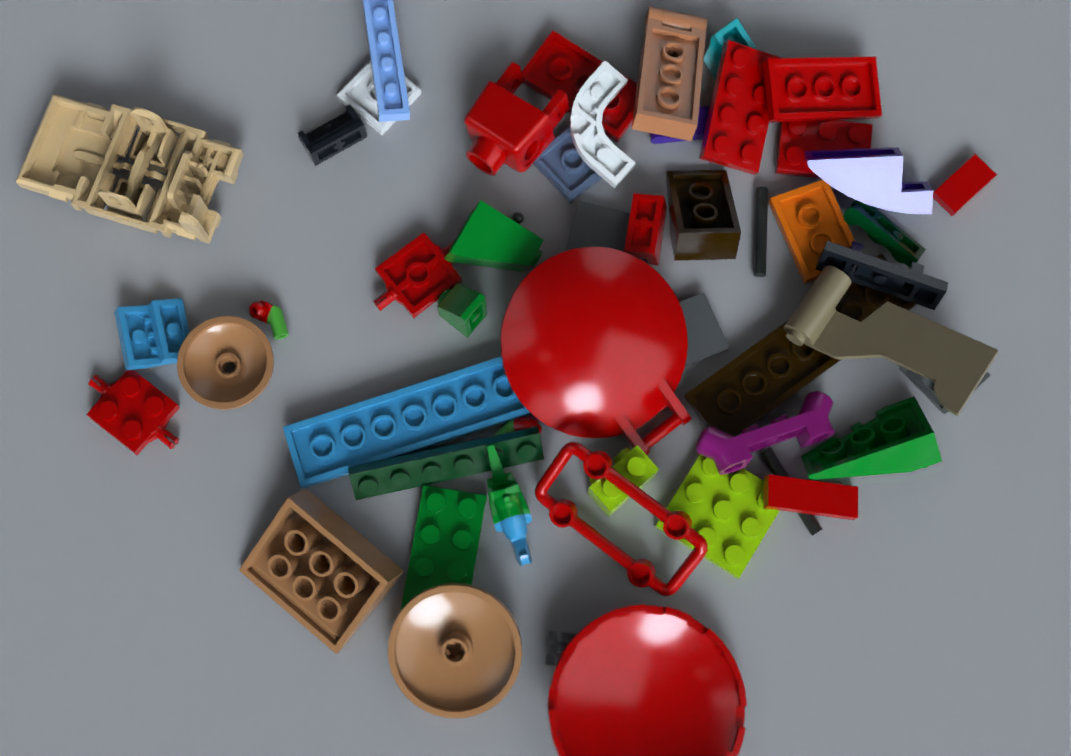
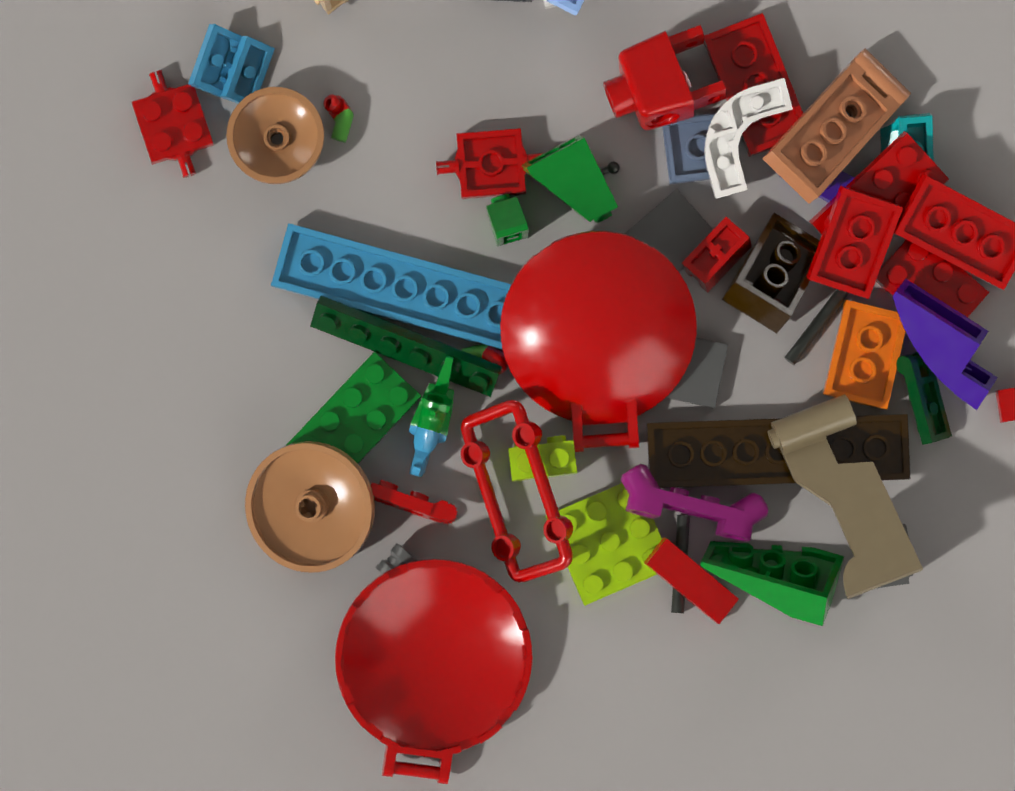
camera: 35 degrees right, 10 degrees up
(320, 569) = (243, 365): medium nougat slope -> none
(541, 587) = (415, 503): none -> red hinge
(747, 146) = (854, 242): none -> red plate
(883, 275) = (887, 434): black hinge -> none

